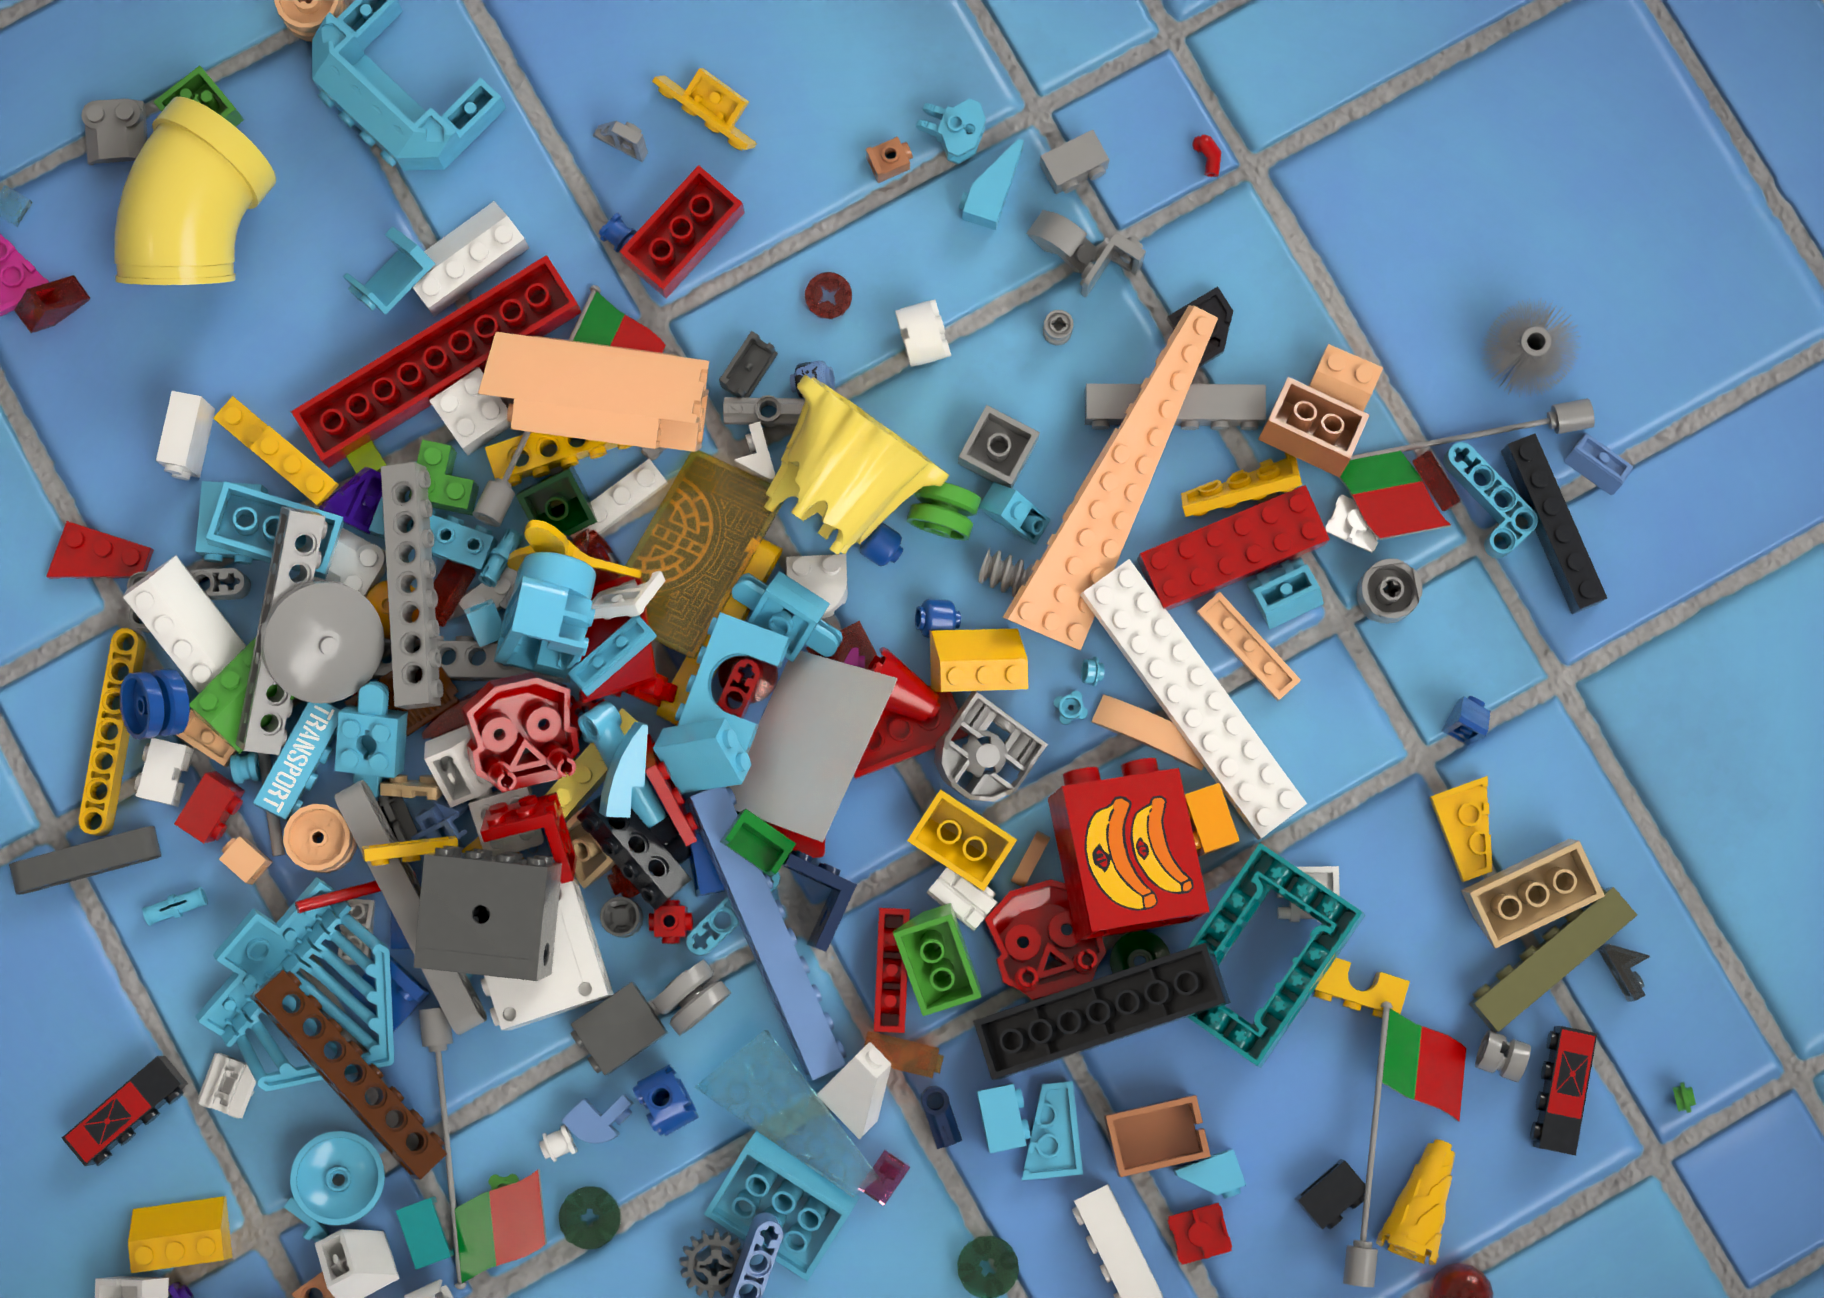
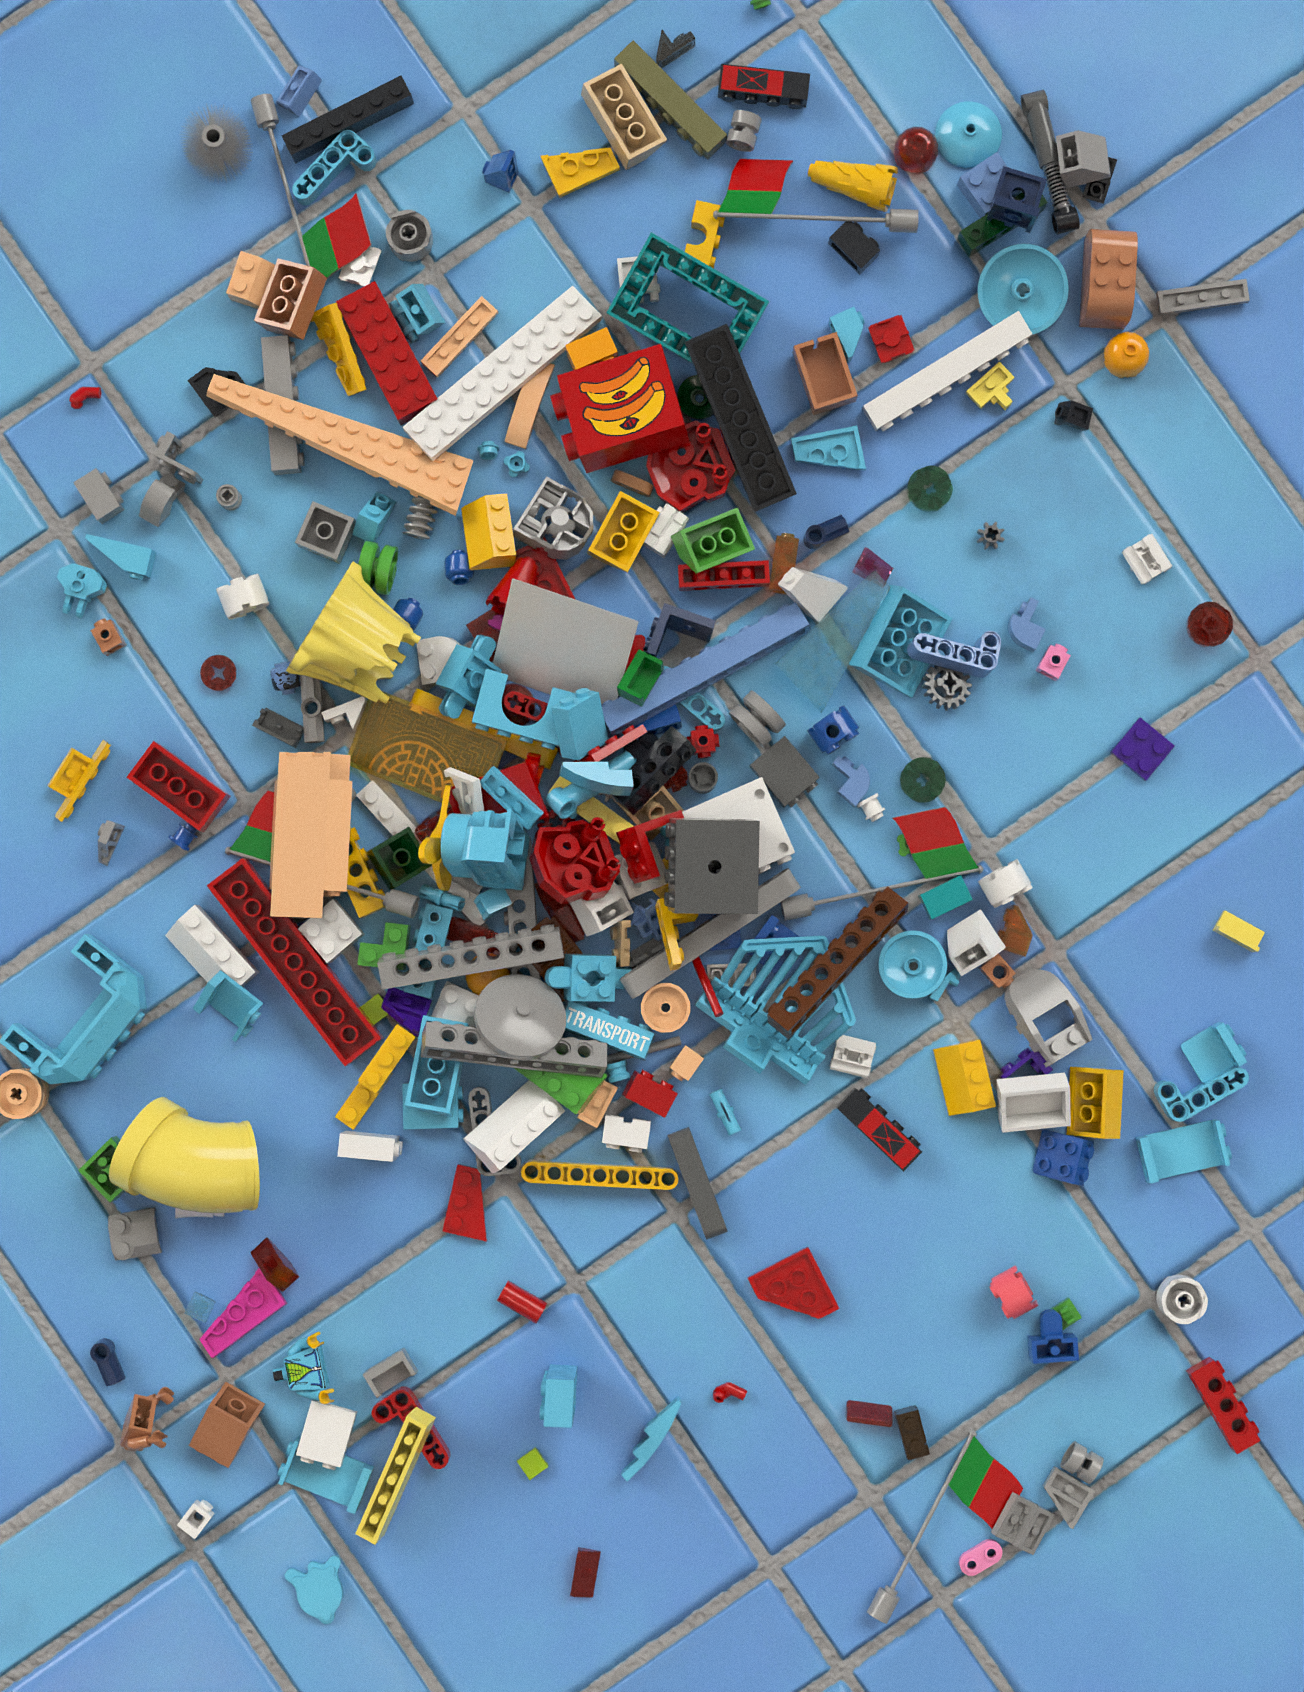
camera: 90 degrees left, 5 degrees up
(154, 703) = (577, 1141): blue wheel -> none
(1002, 1117) = (822, 485): medium azure brick -> none
(1436, 481) = (323, 206): clear red slope -> none

